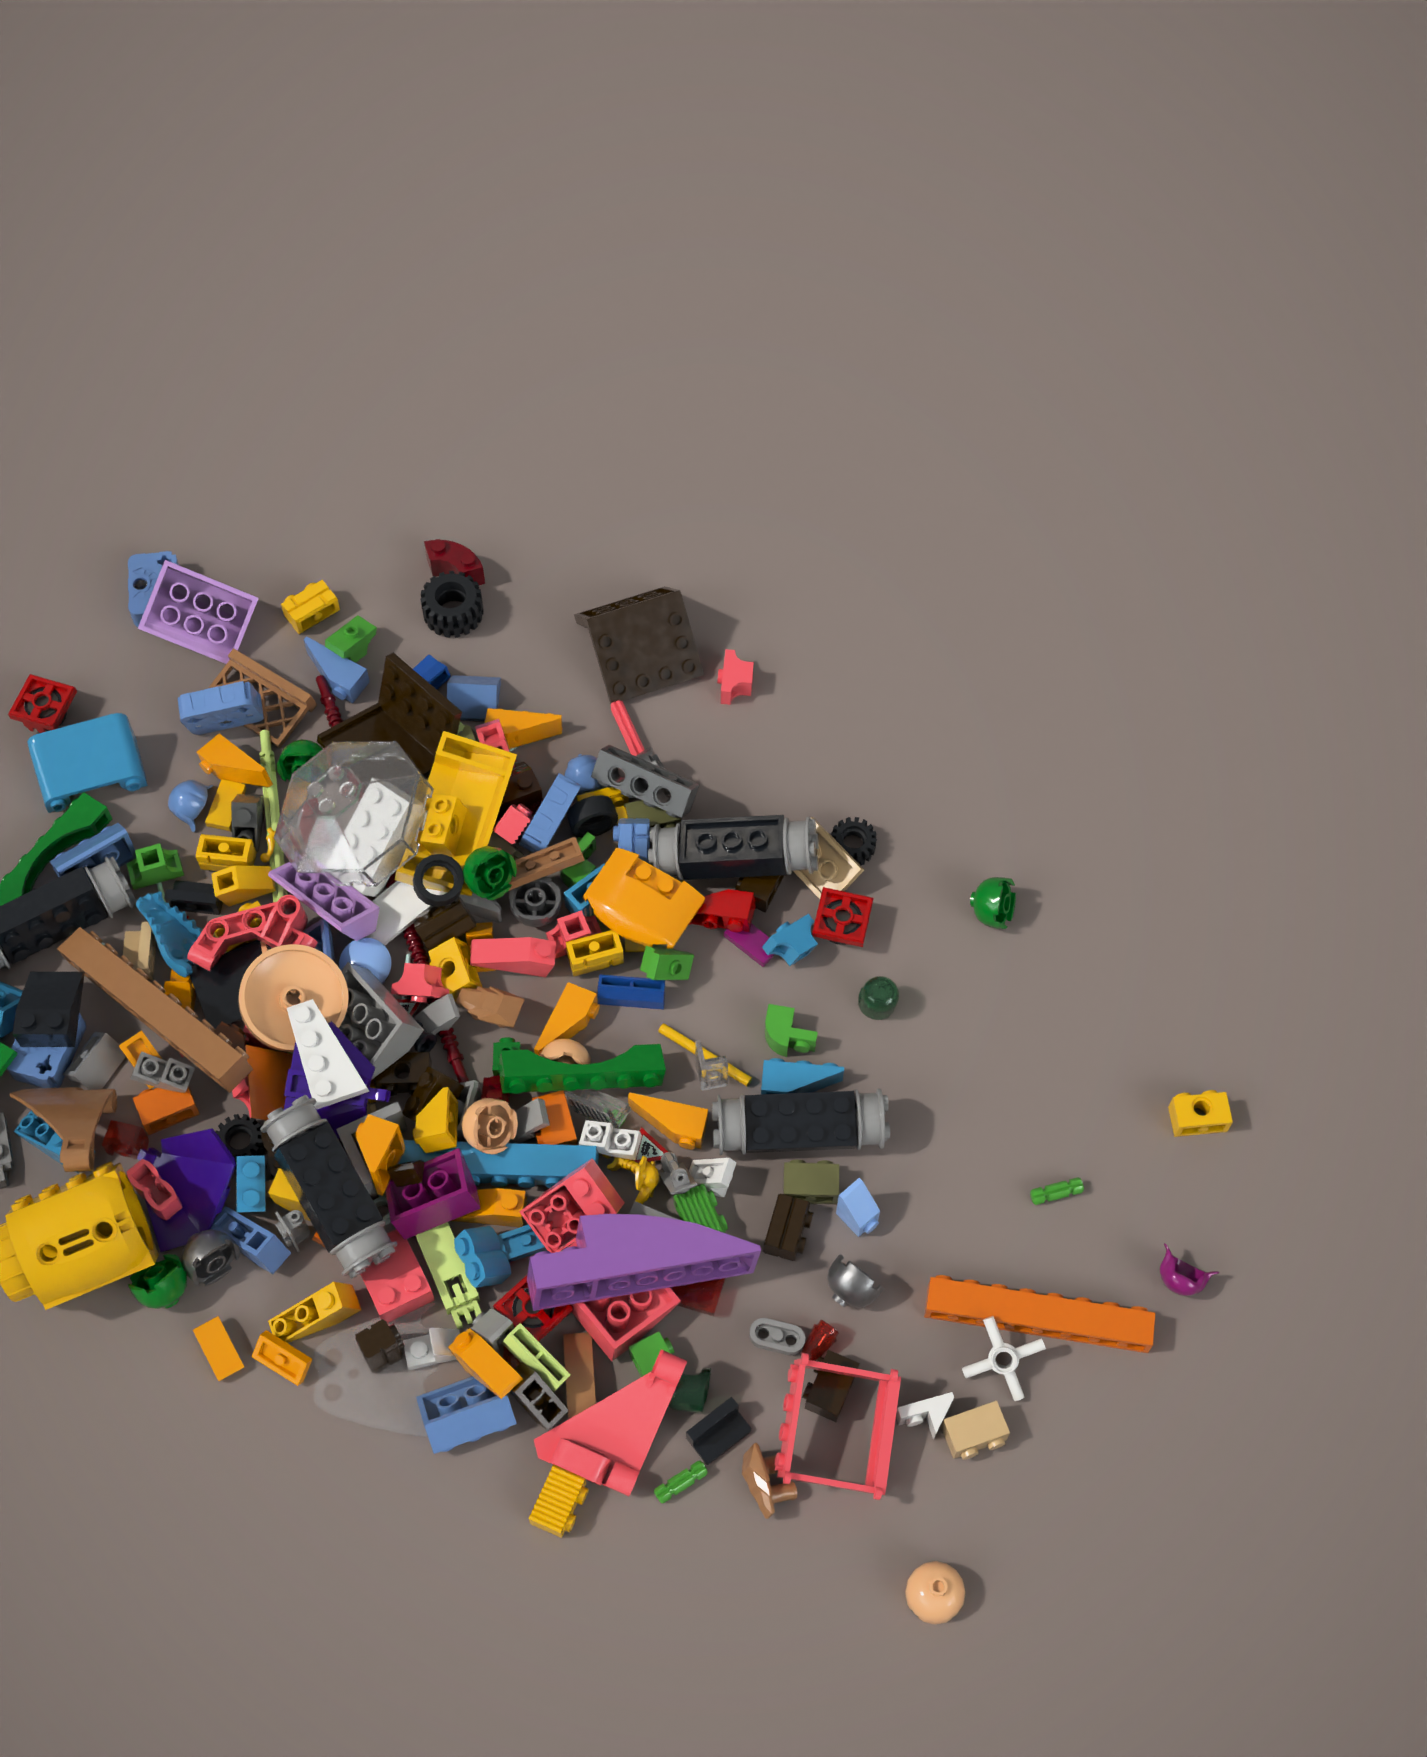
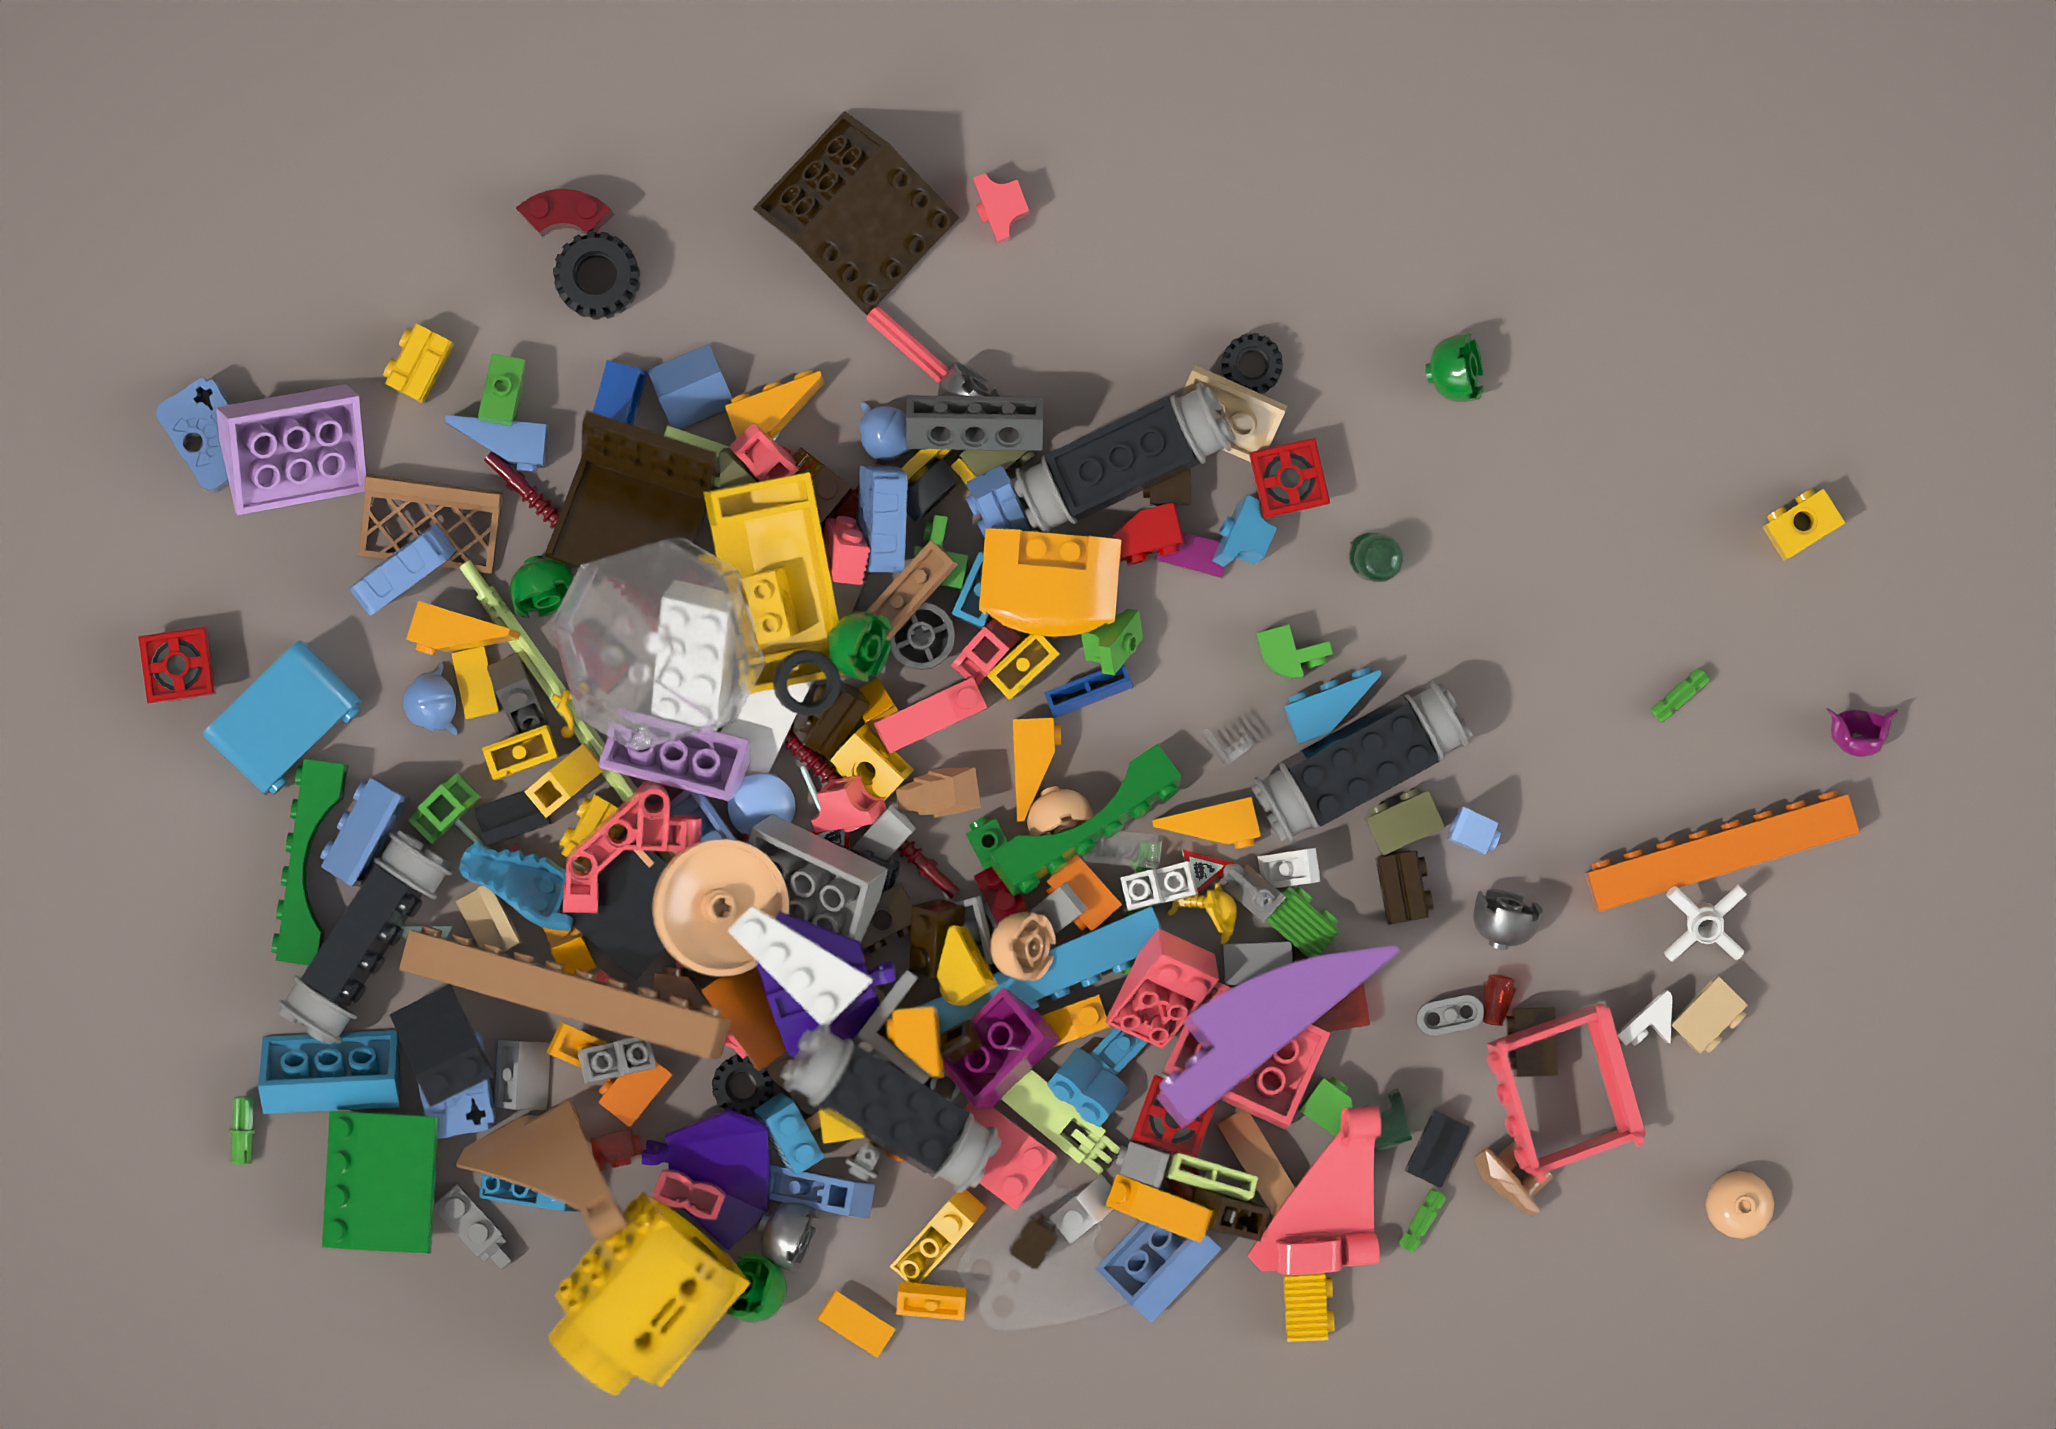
camera: 20 degrees left, 25 degrees up
(689, 1045) = (1209, 723): yellow bar -> none

